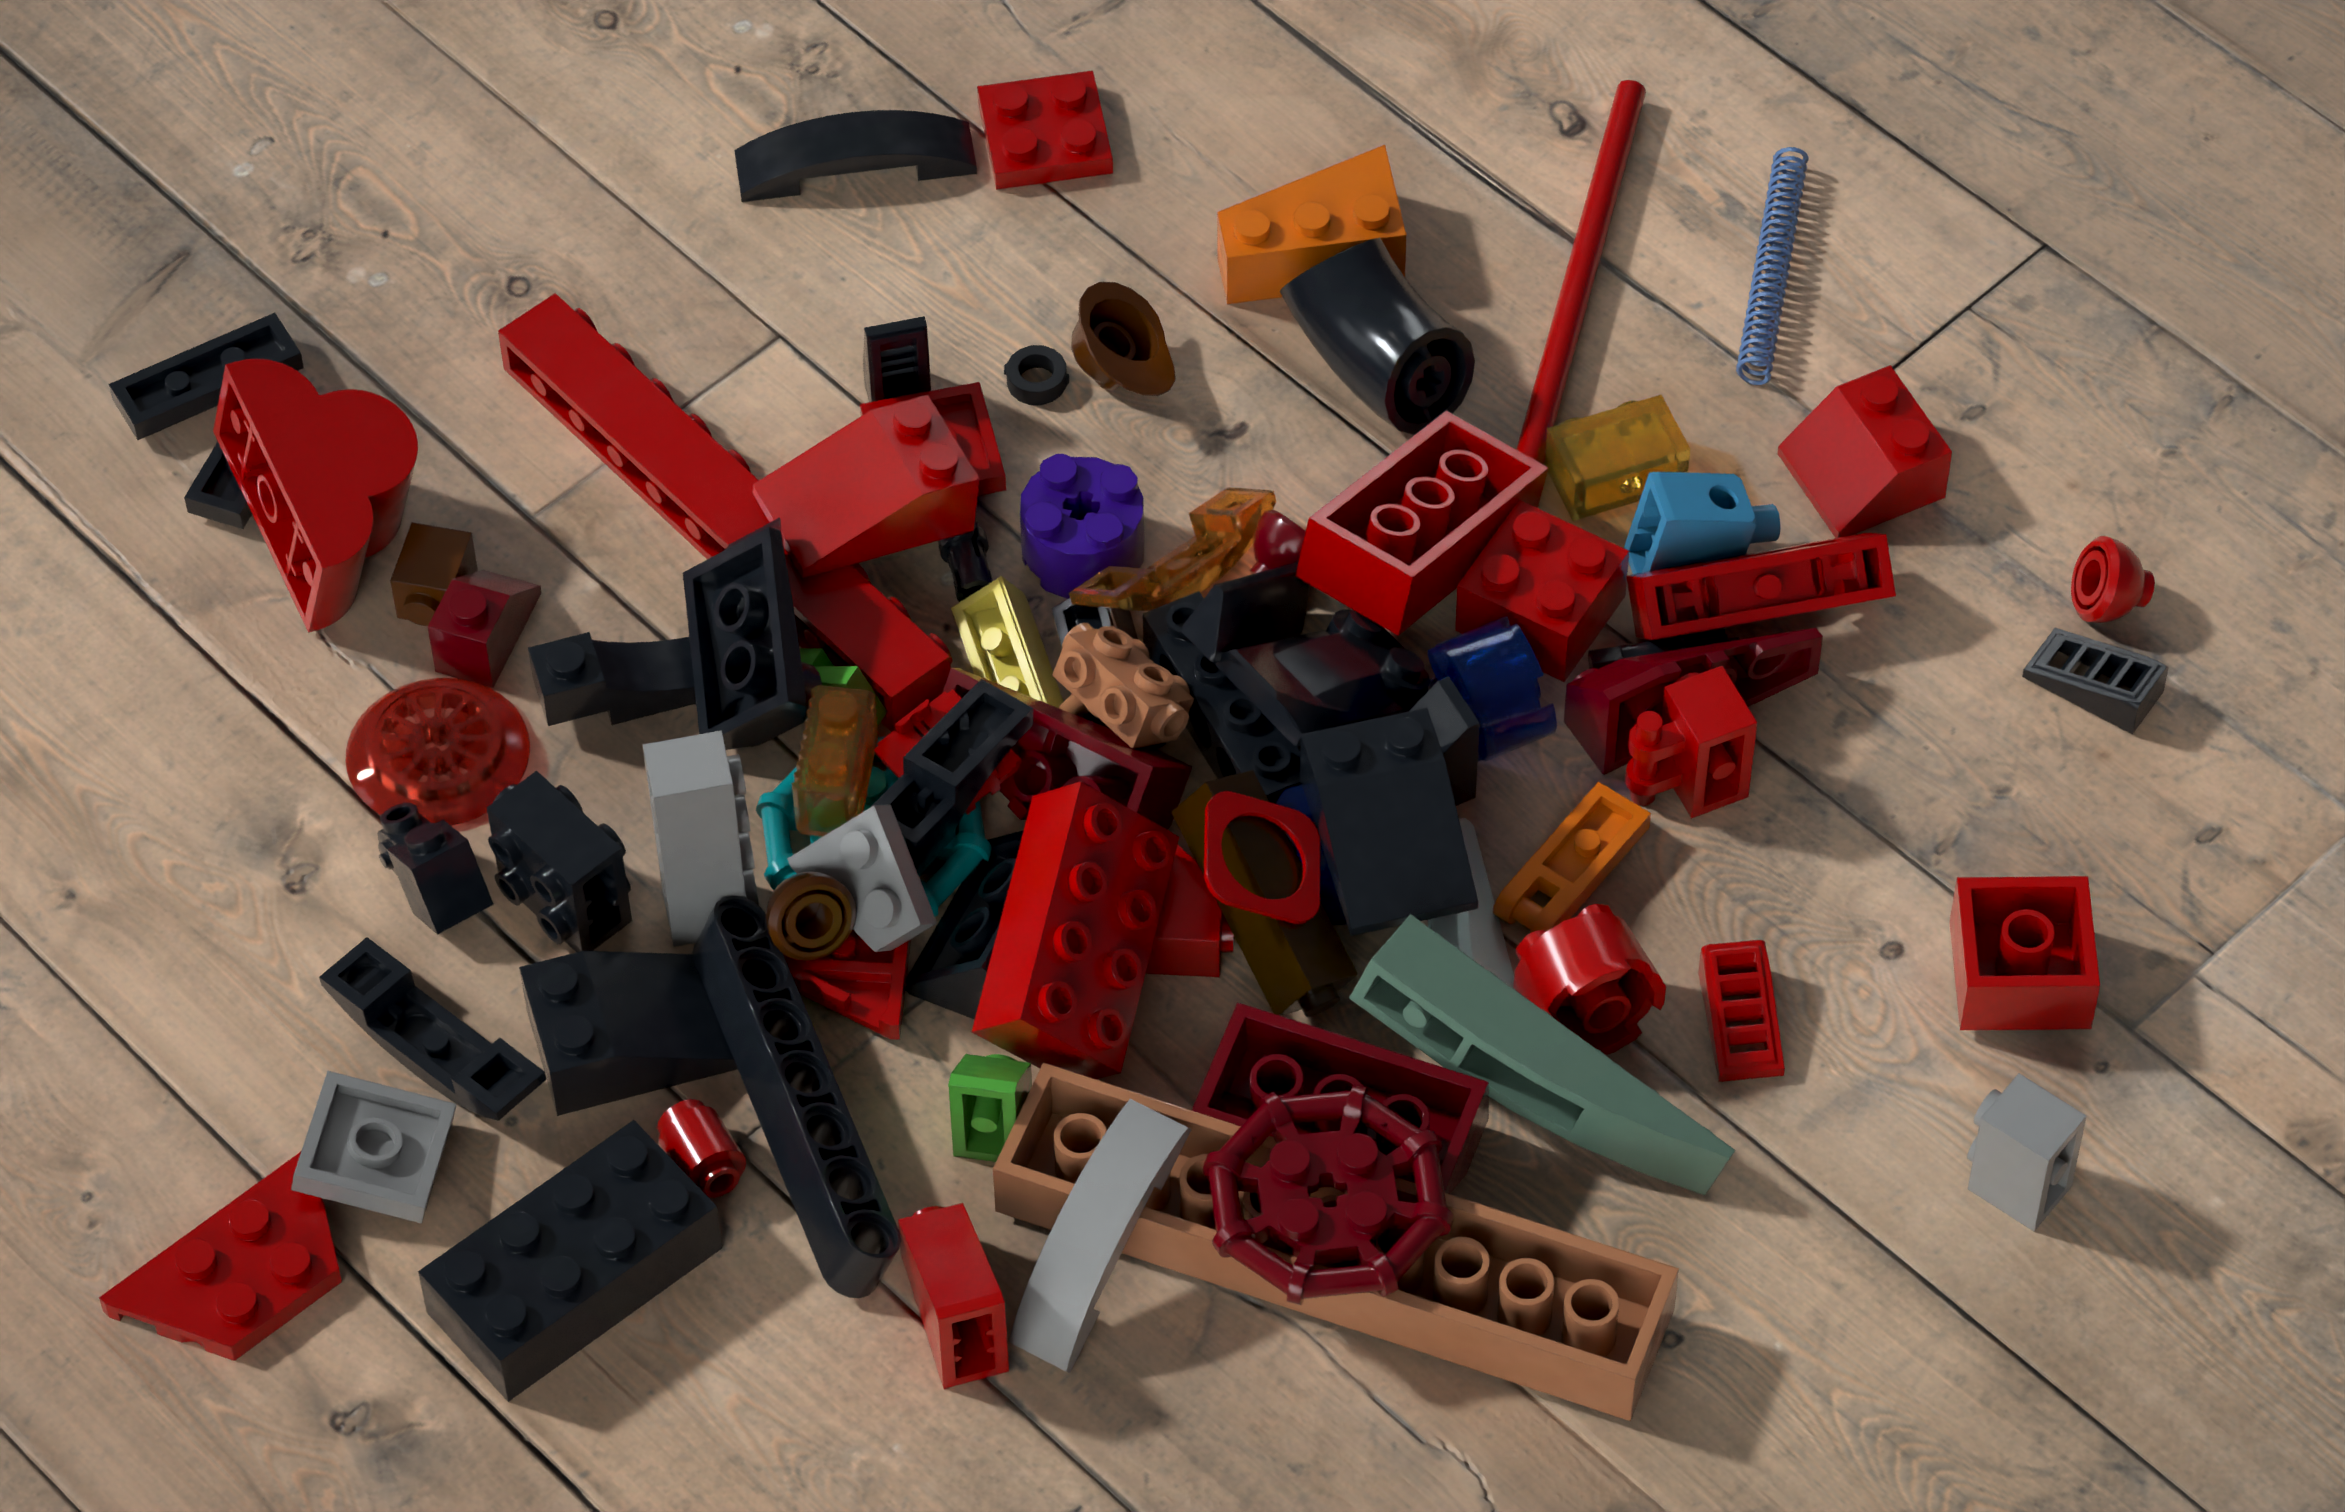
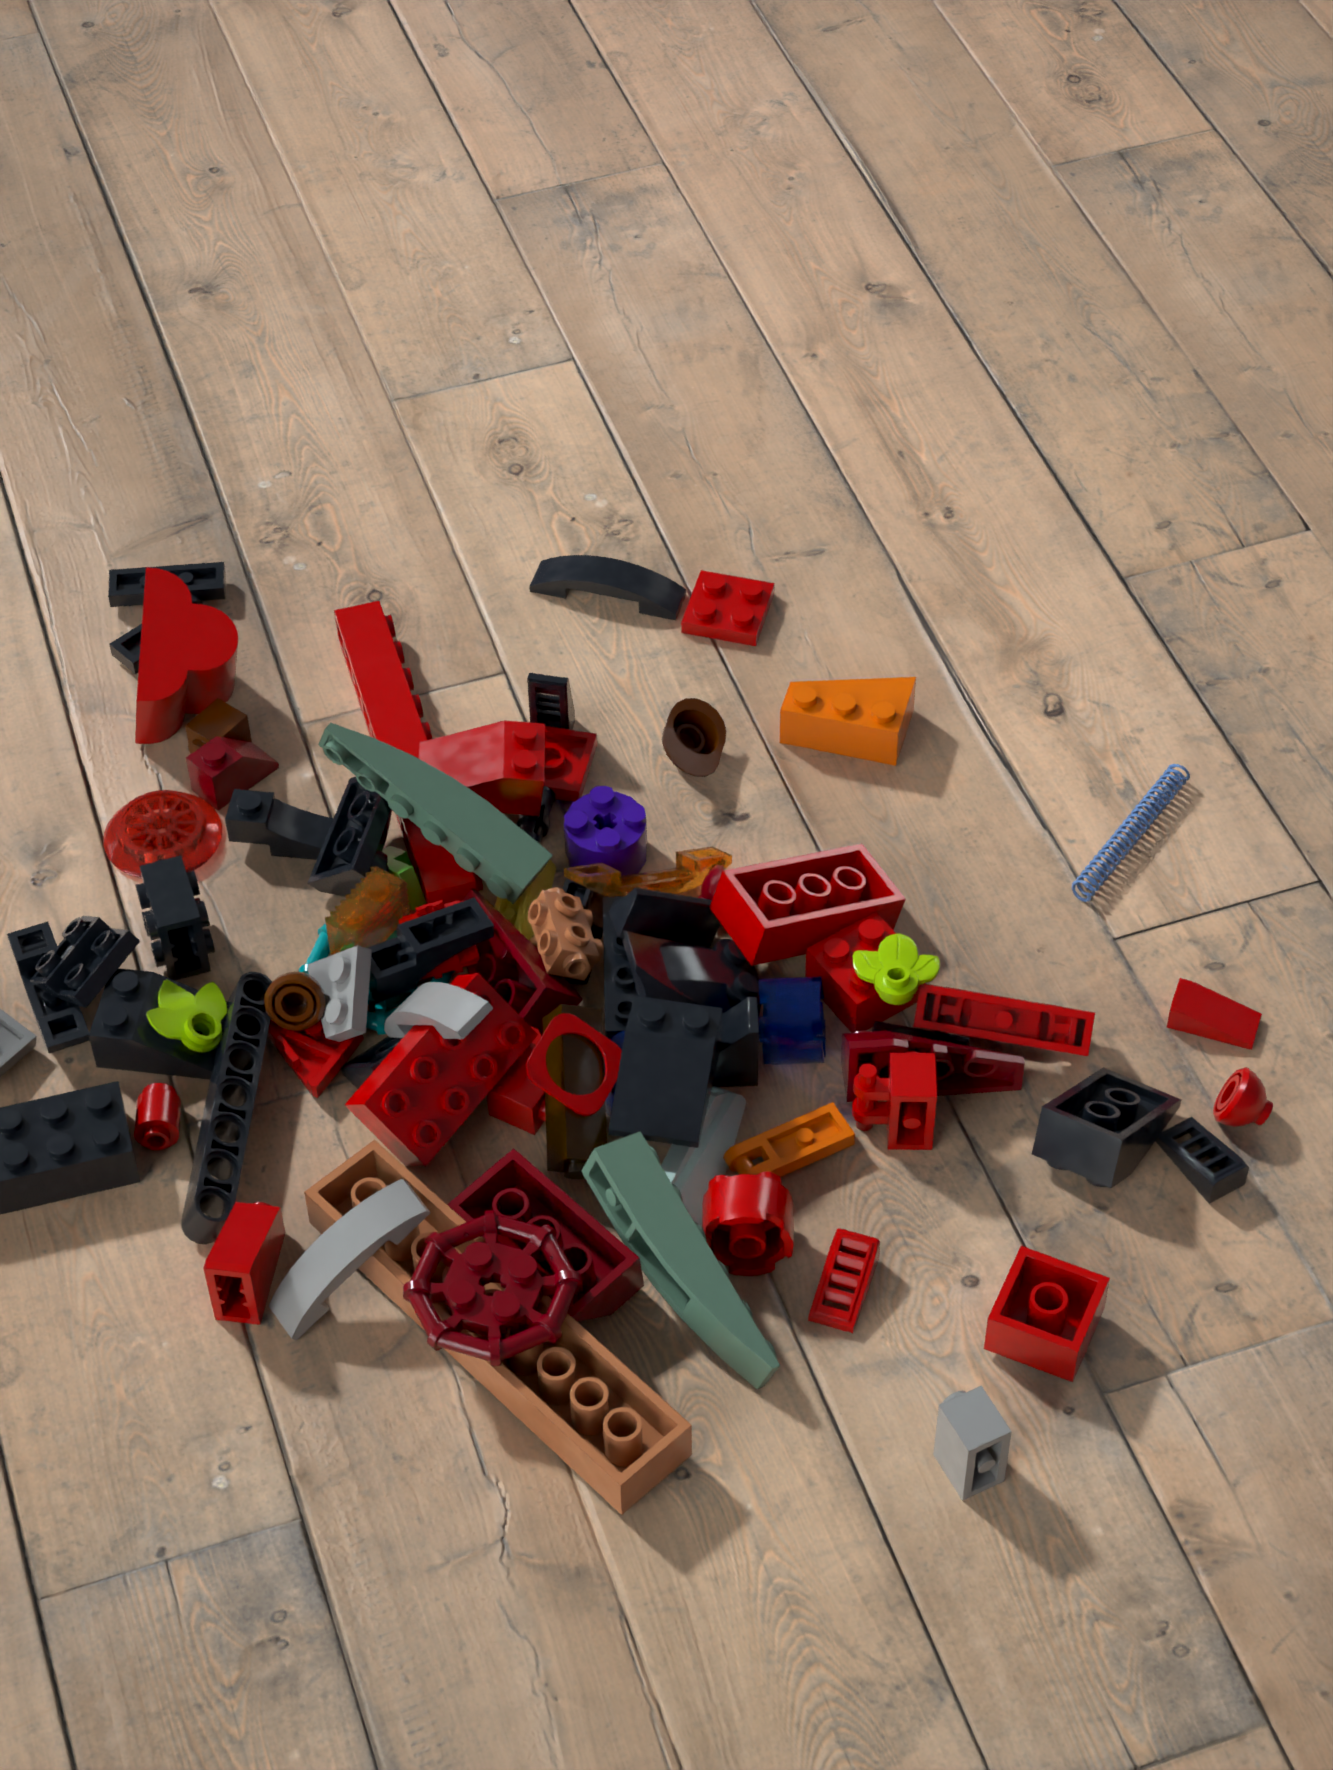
camera: 25 degrees right, 5 degrees down
(433, 867) = (108, 892): black brick -> none
(470, 972) = (83, 960): none -> black slope
(671, 993) = (184, 1013): none -> lime plate
(699, 829) = (244, 918): light grey brick -> none
(873, 570) = (443, 810): none -> sand green slope
(986, 1103) = (330, 1144): bright green slope -> none
(1036, 392) = (638, 754): black piece -> none
(1036, 847) = (445, 1006): none -> light grey slope
(1382, 336) = (850, 785): black brick -> none
(1581, 269) = (1002, 800): red piece -> none
(1598, 569) = (896, 968): none -> lime plate
(1608, 455) = (961, 911): clear yellow brick -> none
(1695, 520) = (986, 964): dark azure torso -> none
(1867, 454) = (1124, 965): red slope -> none
(1959, 683) = (1102, 1127): none -> black slope
(2010, 482) = (1212, 1015): none -> red slope

